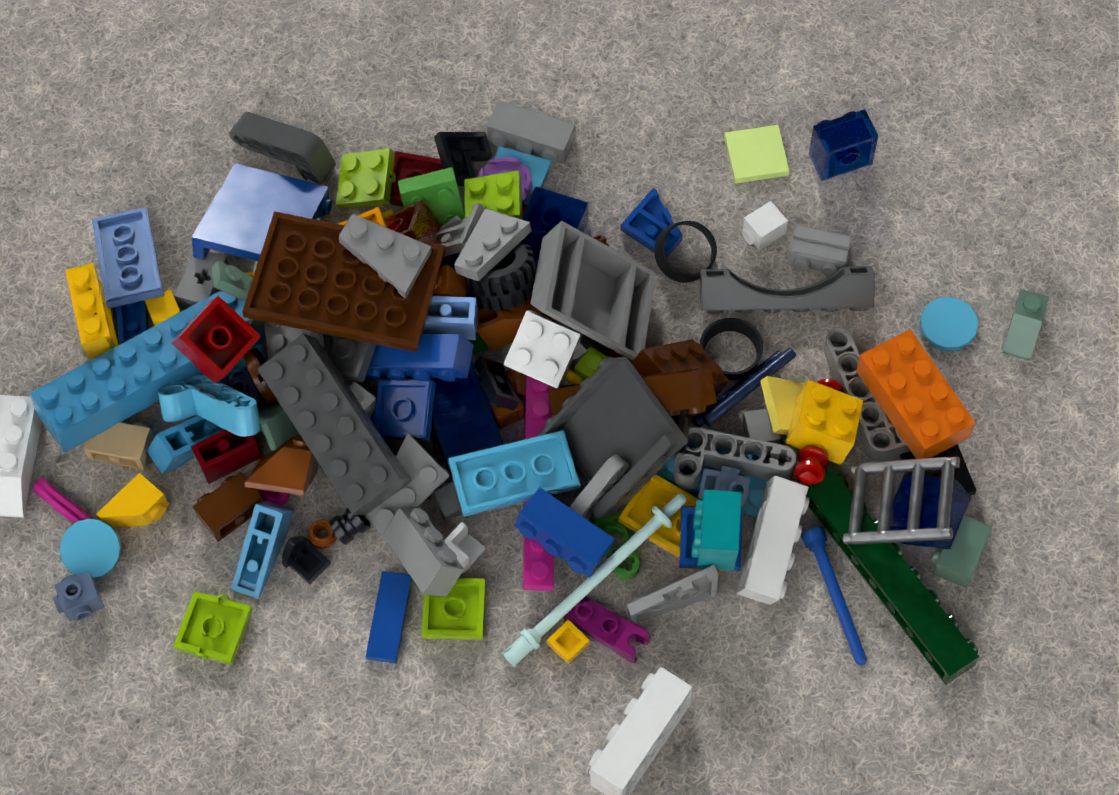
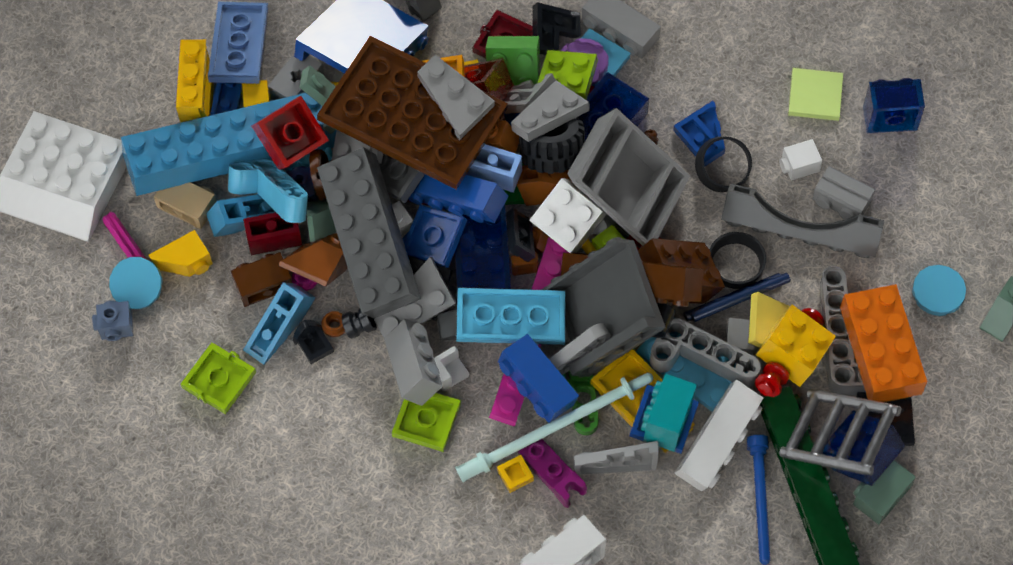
camera: 15 degrees right, 0 degrees up
(365, 178) = (463, 27): lime plate -> none
(389, 617) = (369, 410): blue tile -> none
(725, 480) = (693, 373): sand blue brick -> none

